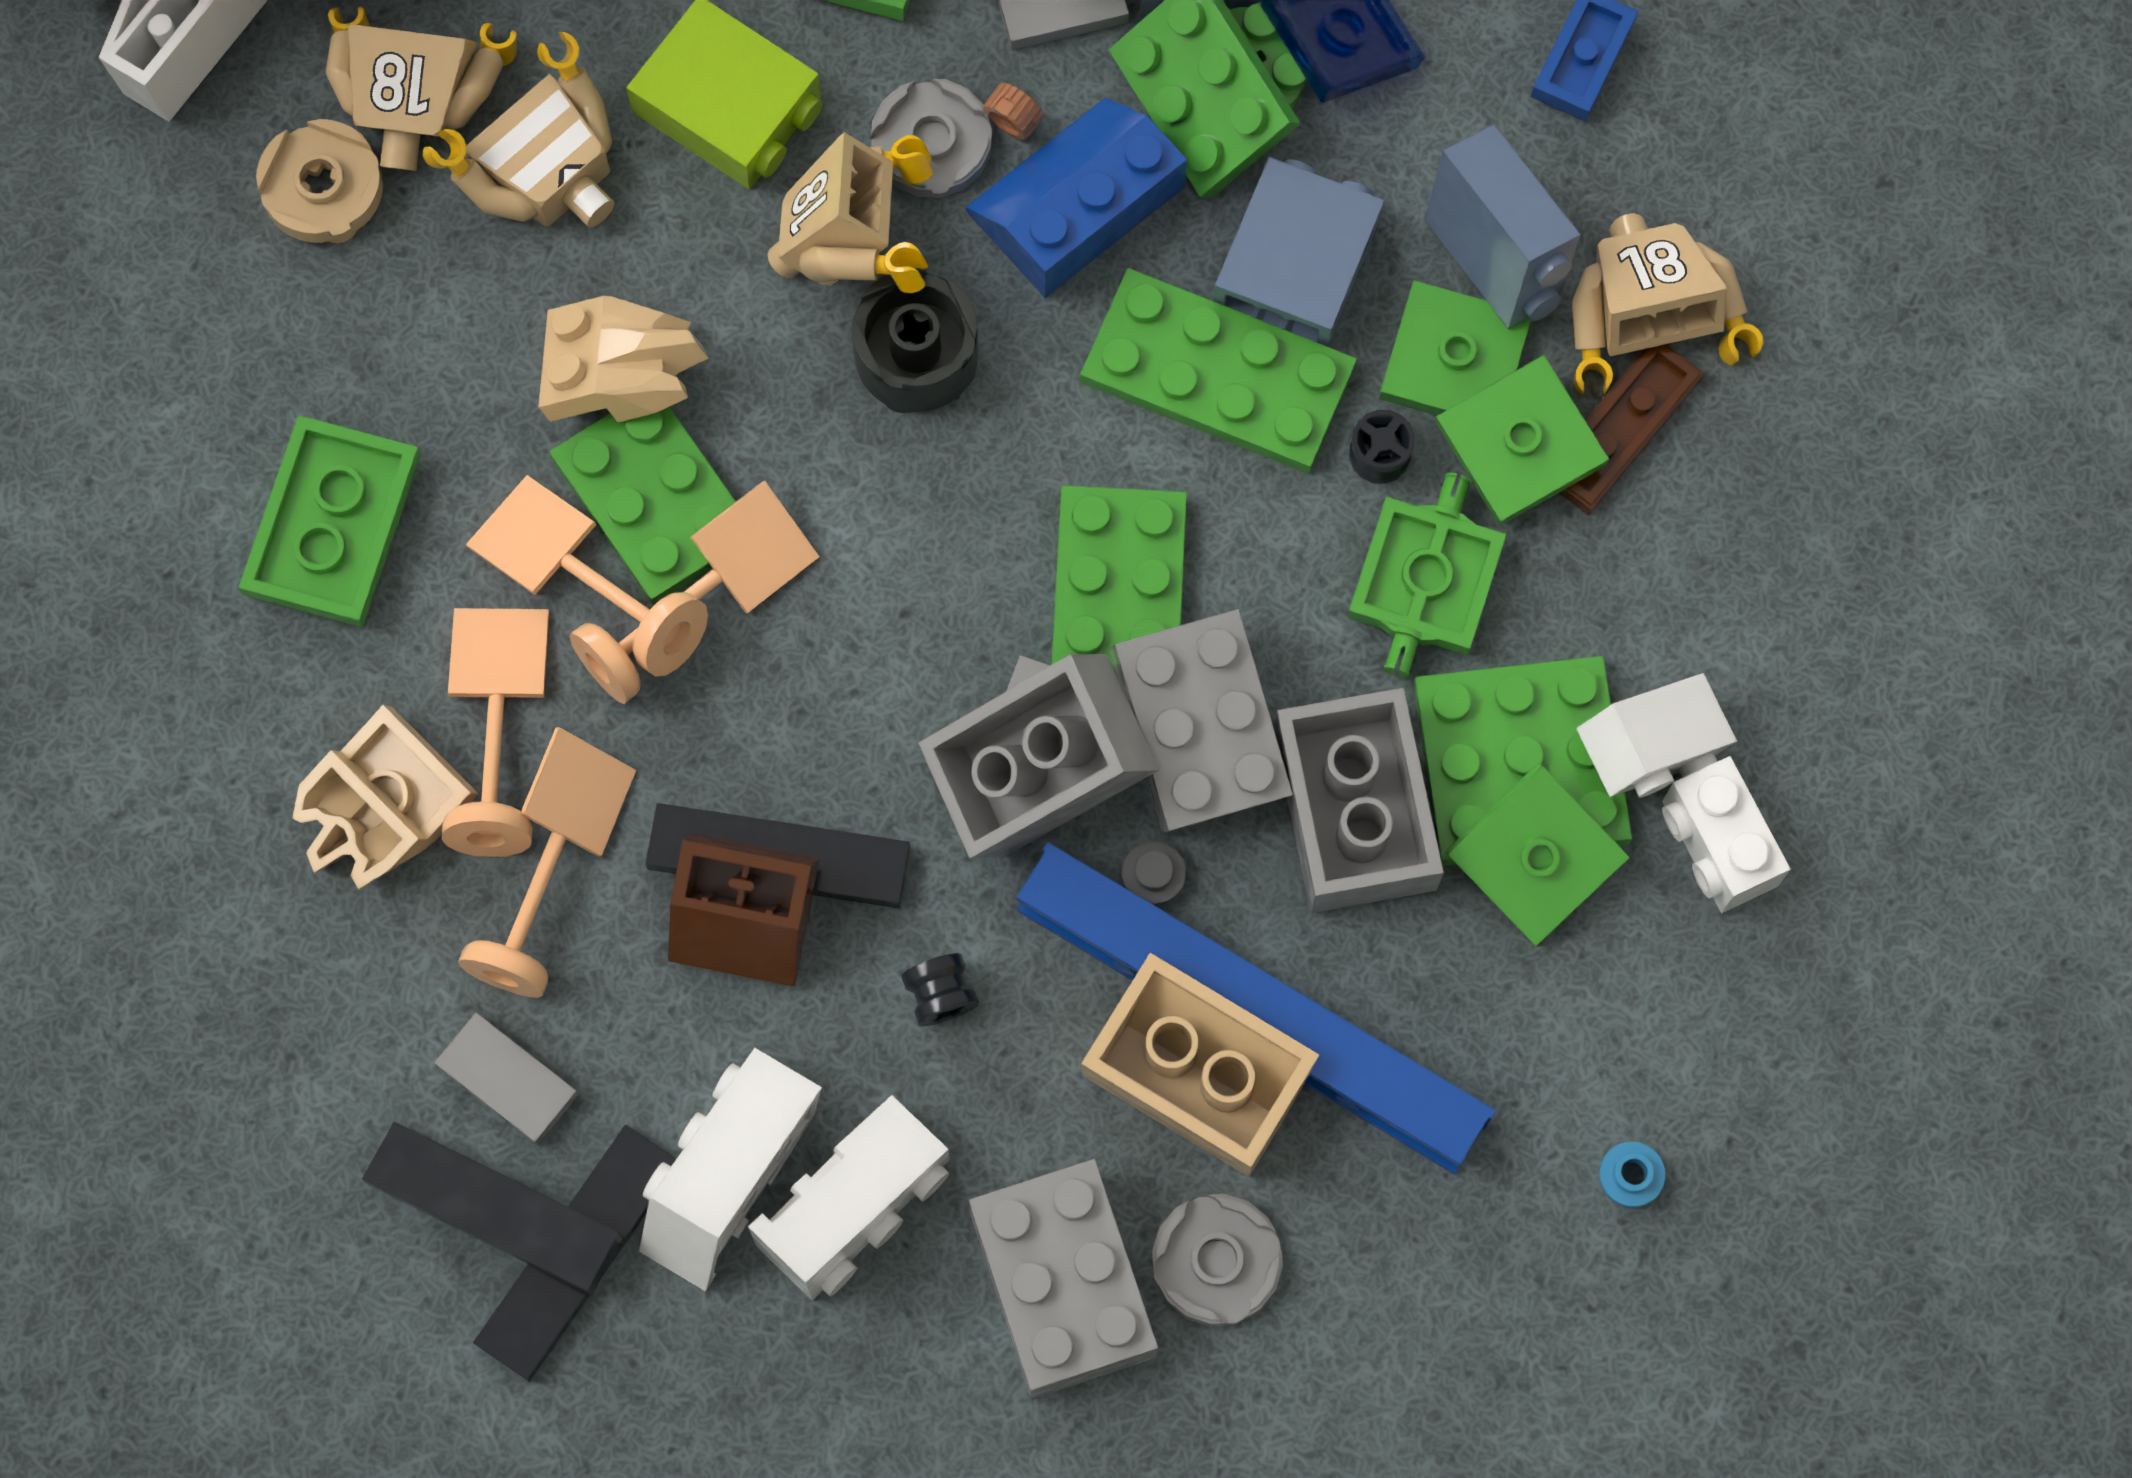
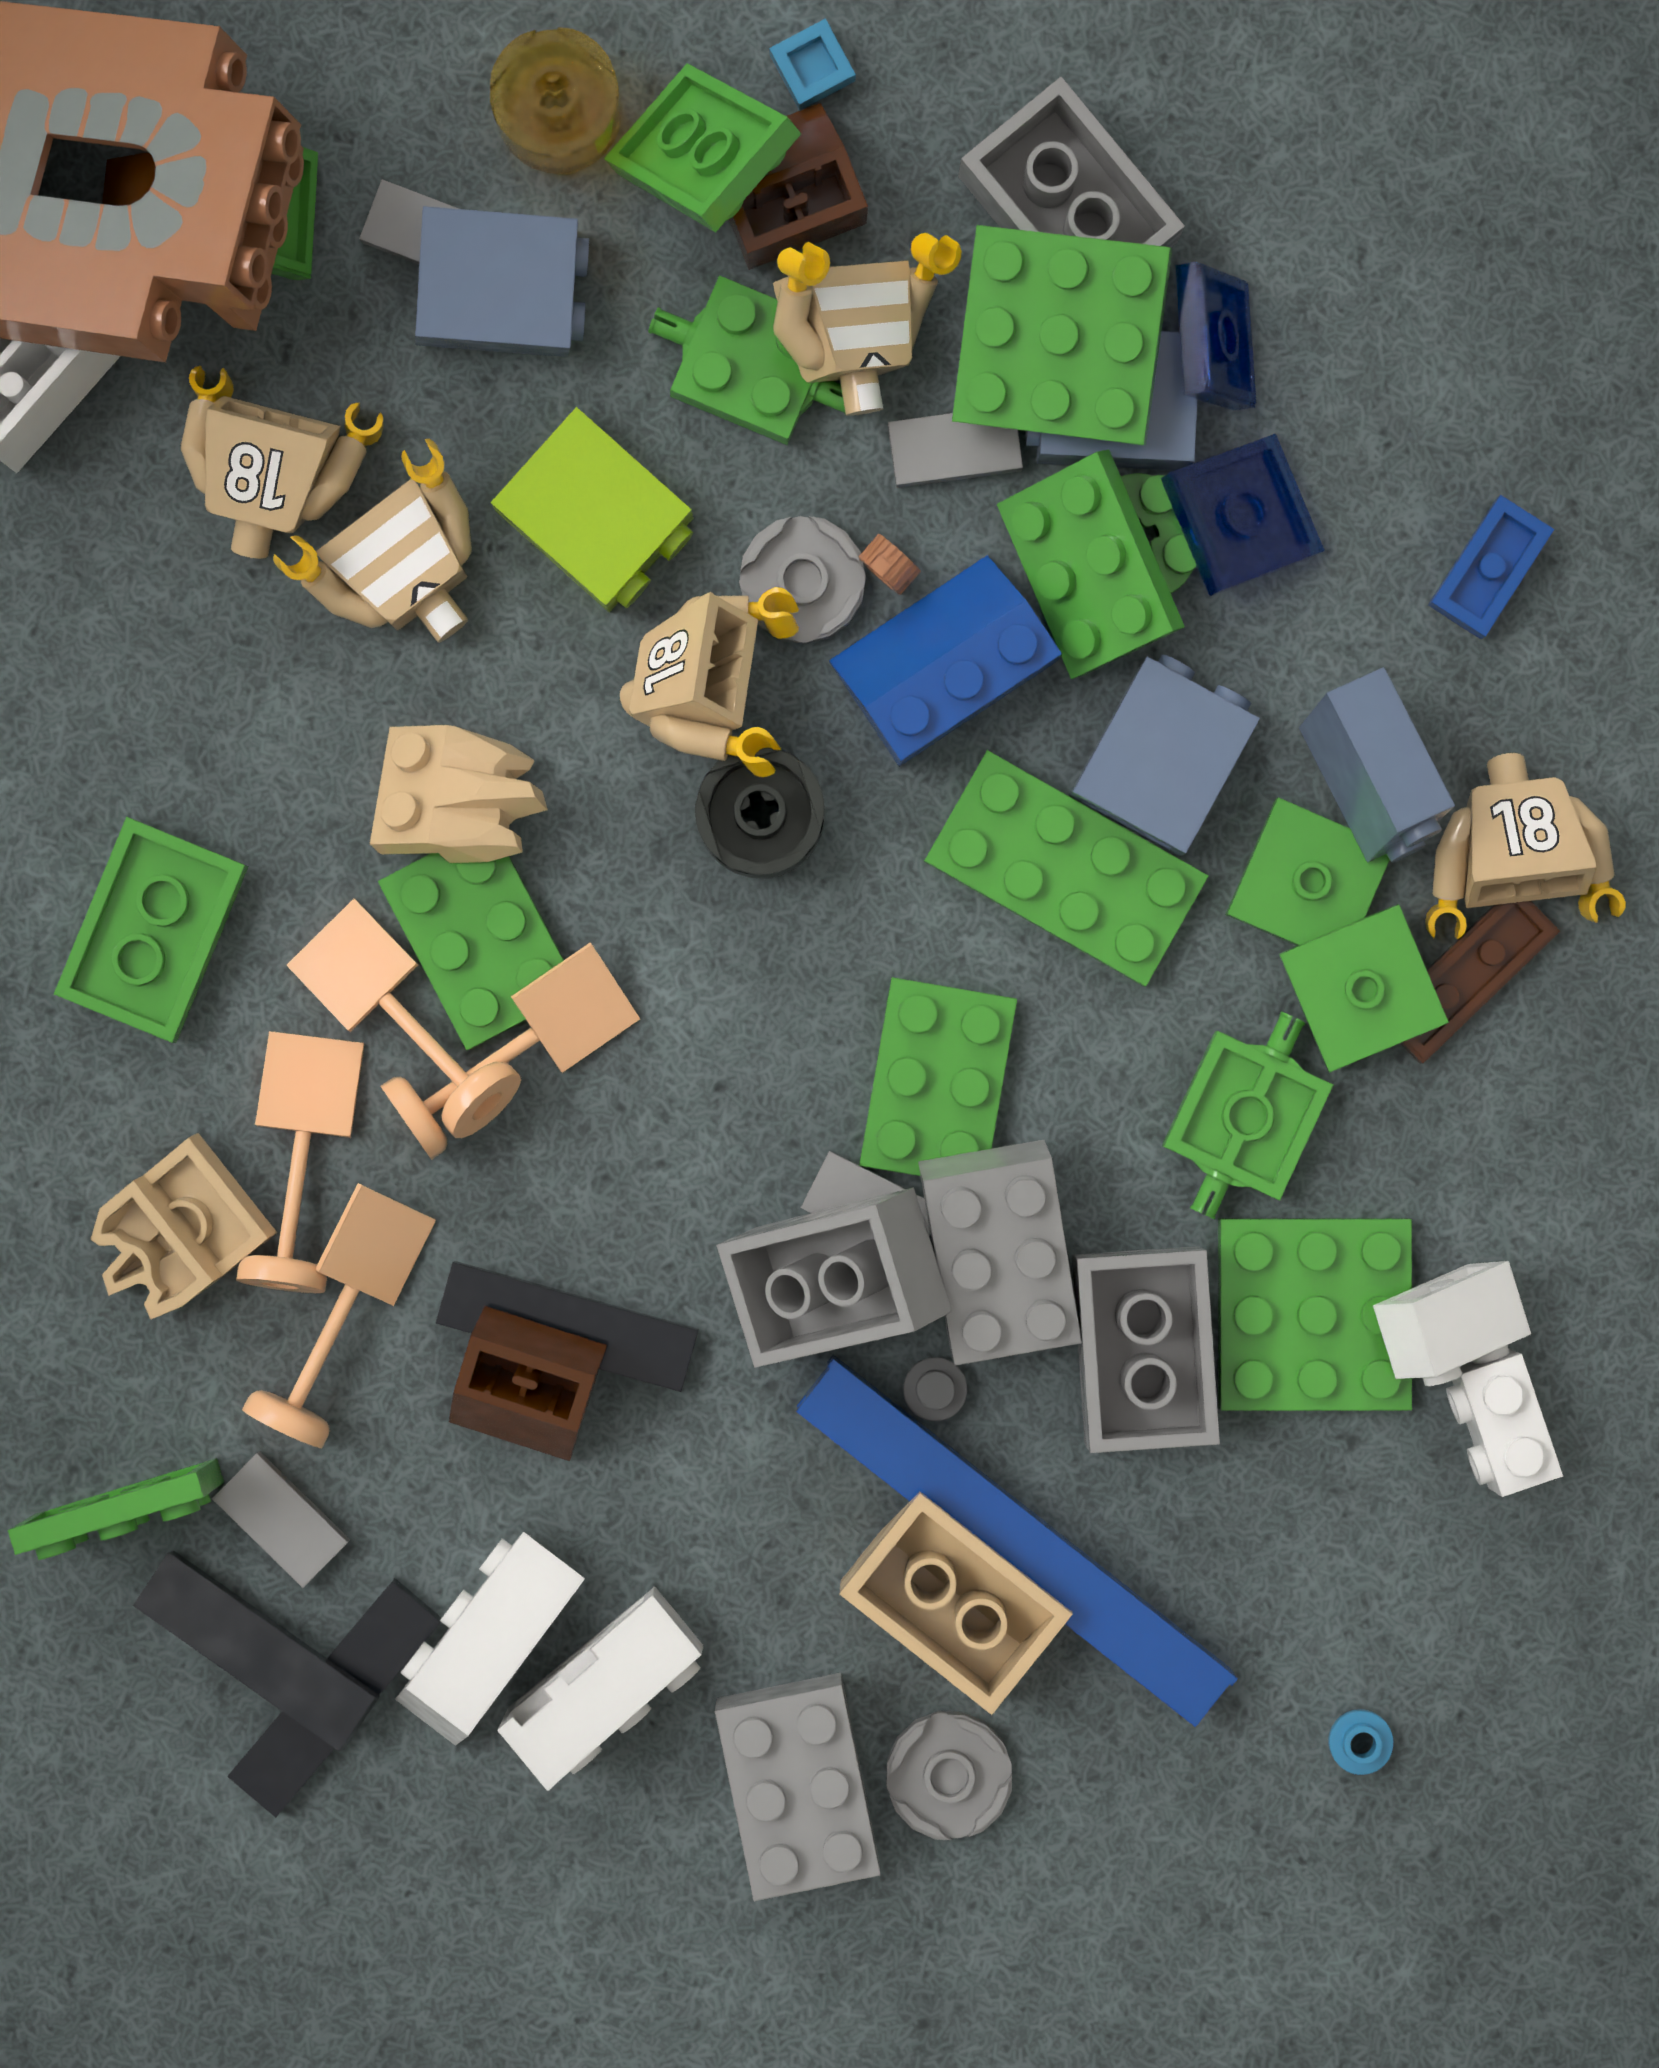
camera: 10 degrees right, 15 degrees up
(307, 151) = (157, 523): tan plate -> none
(339, 1069) = (117, 1510): none -> bright green plate
(940, 989) = (711, 1485): black wheel -> none
(1386, 433) = (1236, 973): black wheel -> none
(1537, 854) = (1315, 1421): bright green plate -> none

